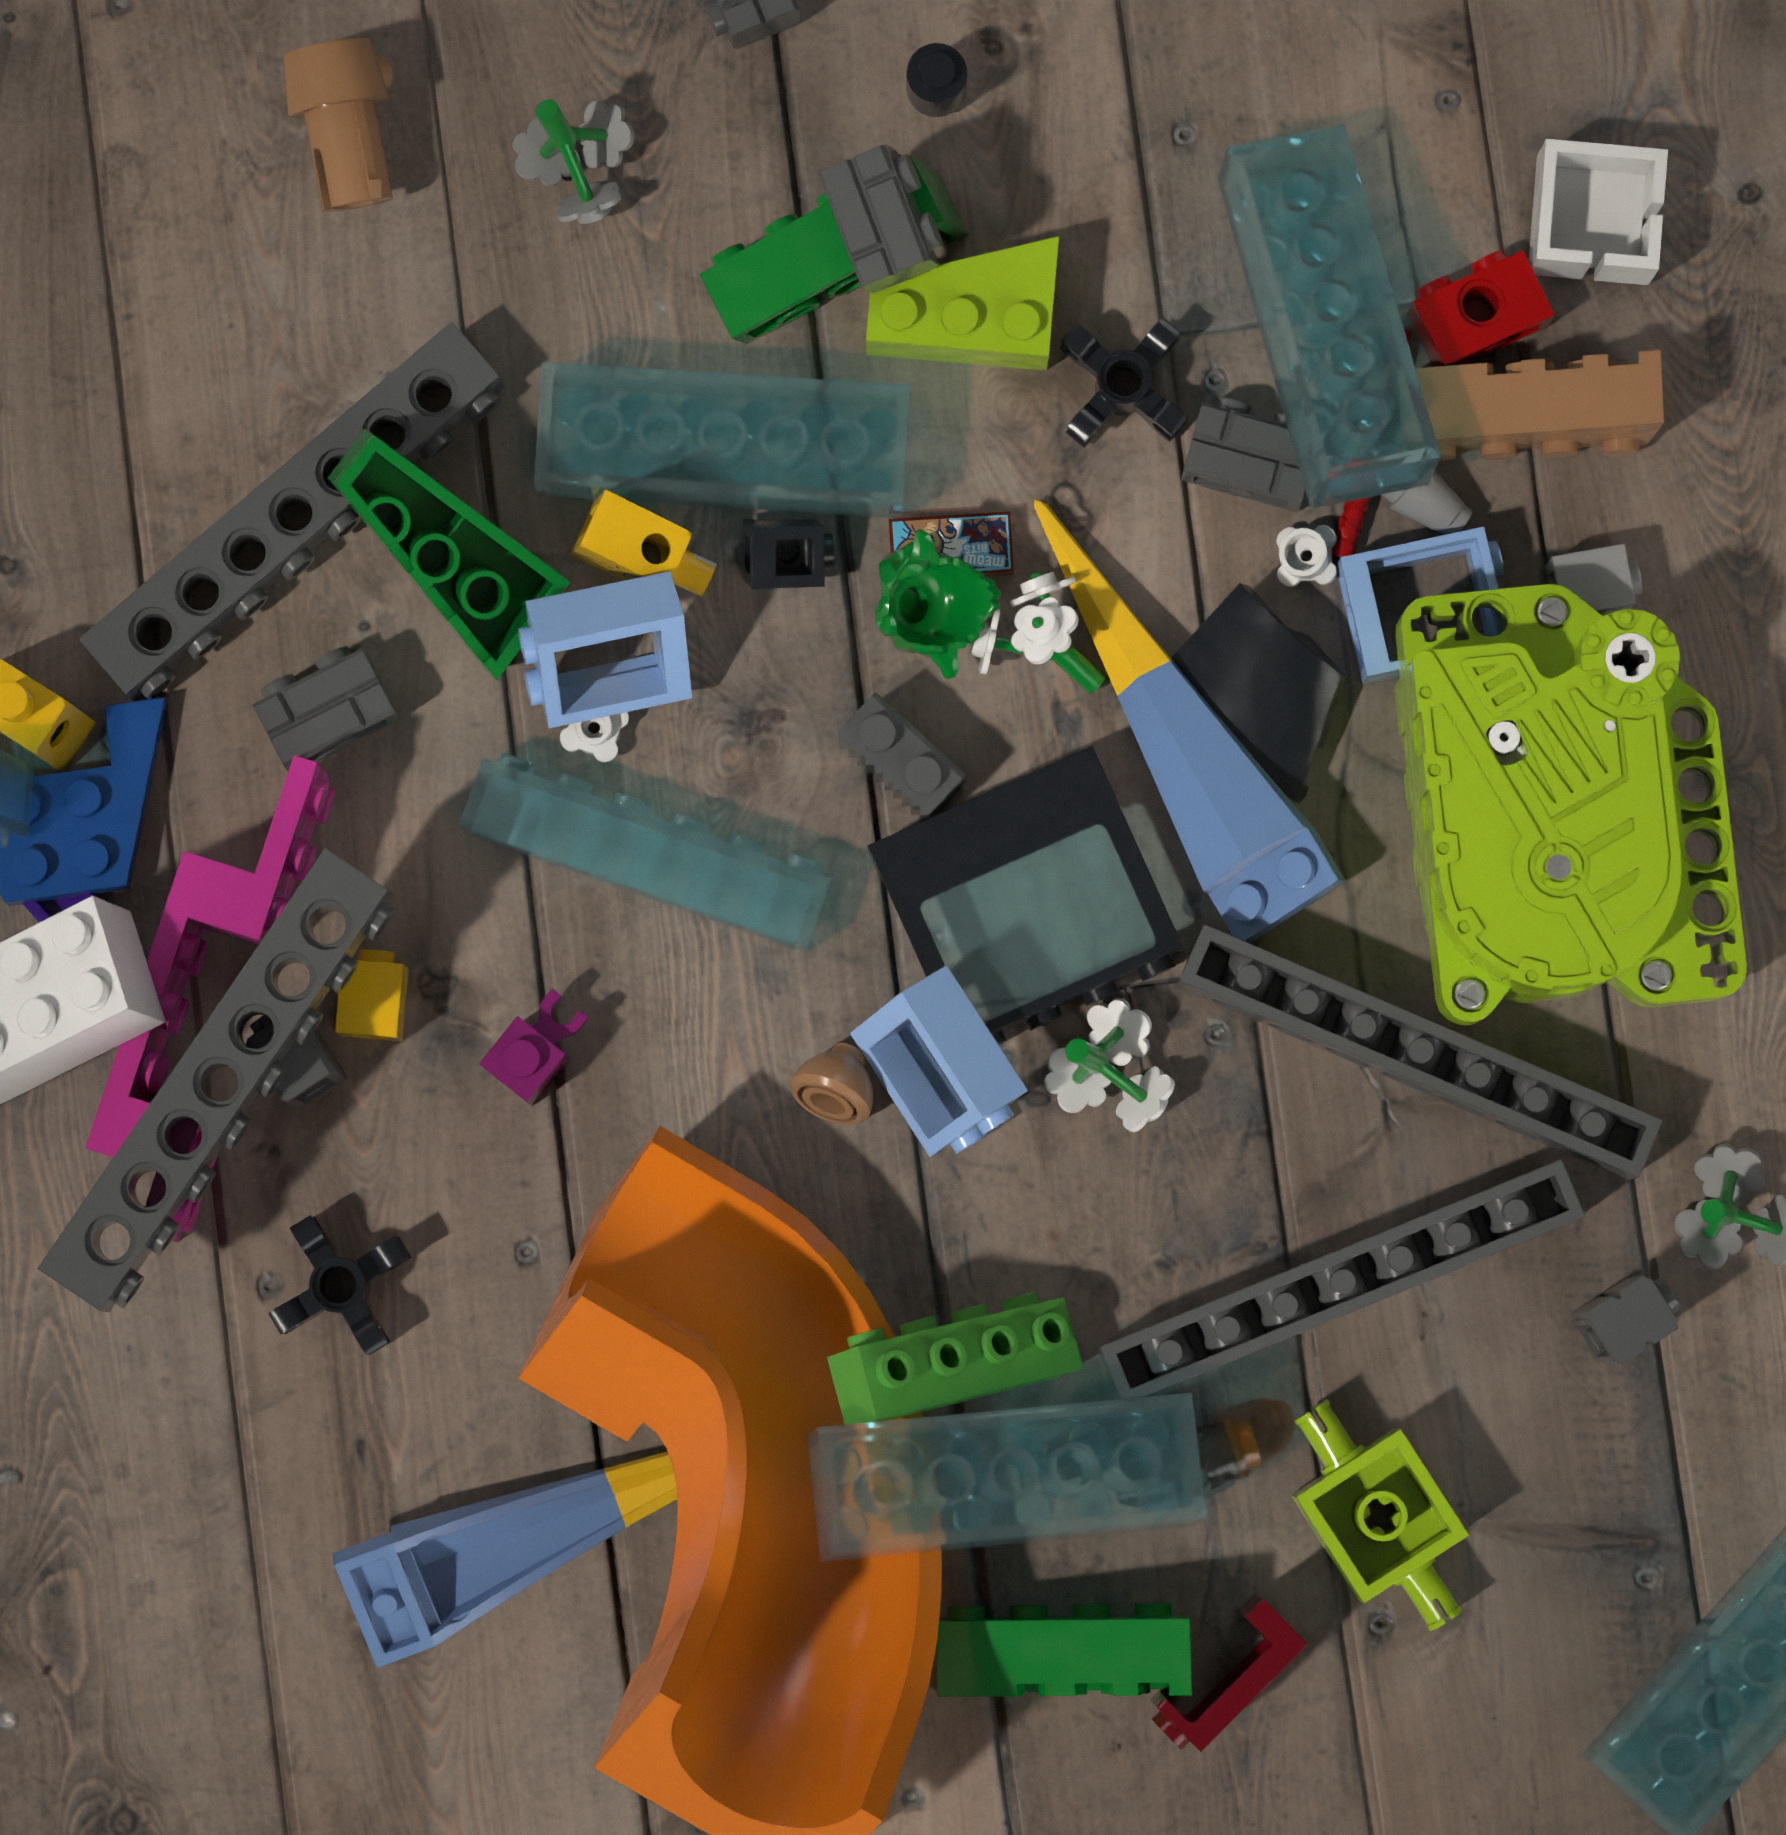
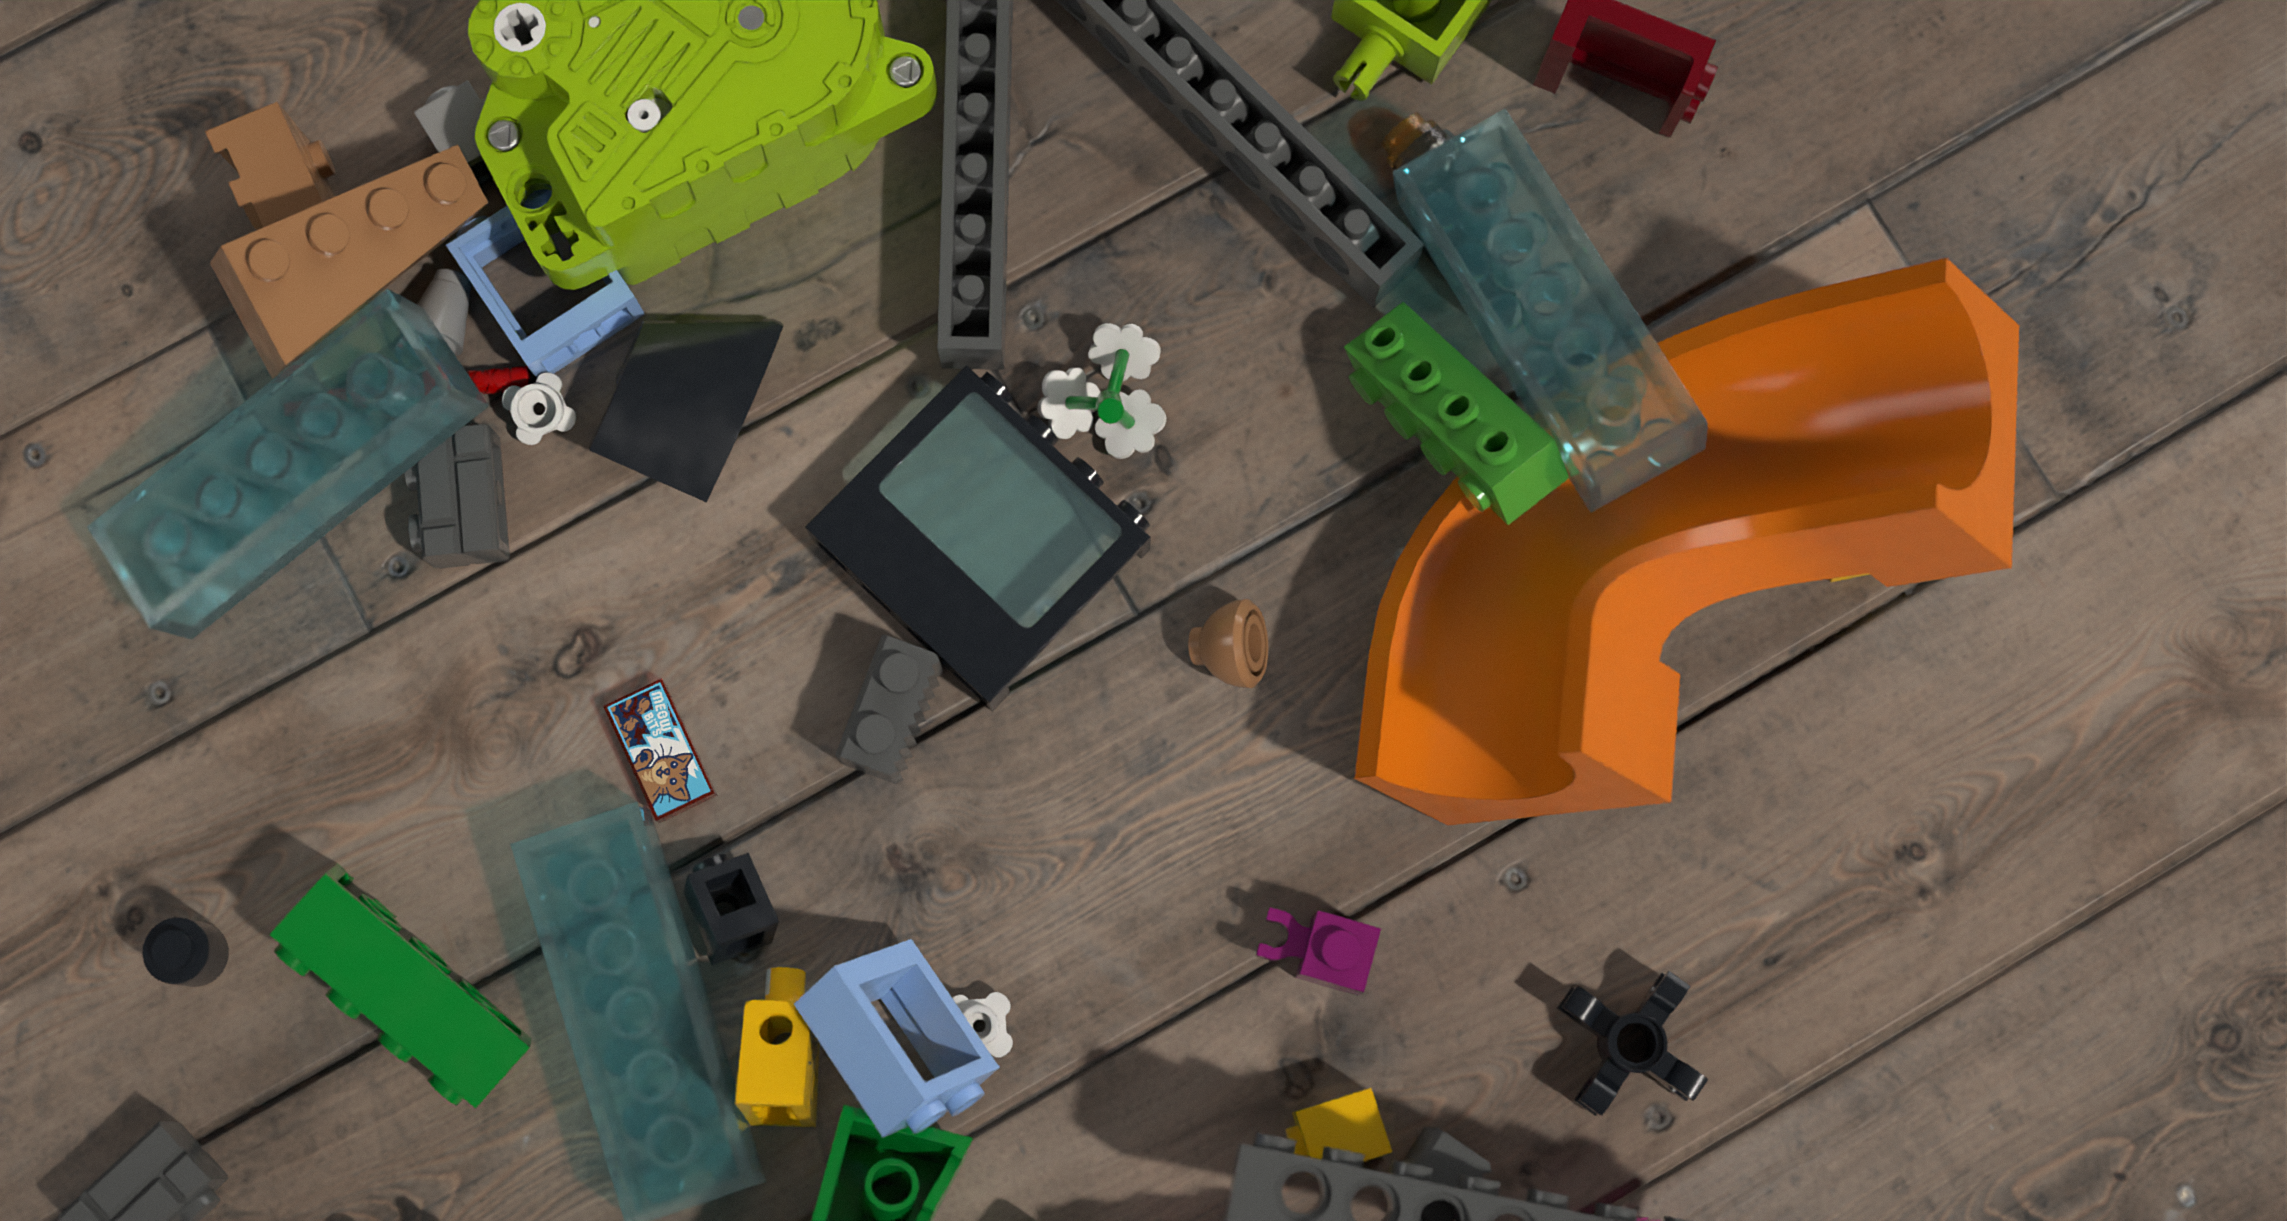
camera: 115 degrees left, 5 degrees down
(463, 1562) = (1843, 811): medium blue plate -> none
(646, 854) = (1084, 920): clear light blue brick -> none
(881, 218) = (344, 936): dark grey brick -> none
(933, 602) = (722, 737): green hair -> none
(961, 1049) = (1148, 530): light blue window -> none
(971, 310) = (413, 823): lime wedge -> none
(1041, 633) = (713, 616): white plant -> none
(1063, 1652) = (1664, 206): green wedge -> none
(1091, 355) = (414, 692): black pin -> none
(1234, 821) = (824, 372): medium blue plate -> none
(1493, 425) = (330, 260): none -> medium nougat wedge
(1510, 289) = (201, 322): red brick -> none
(1593, 210) = (97, 274): white piece -> none

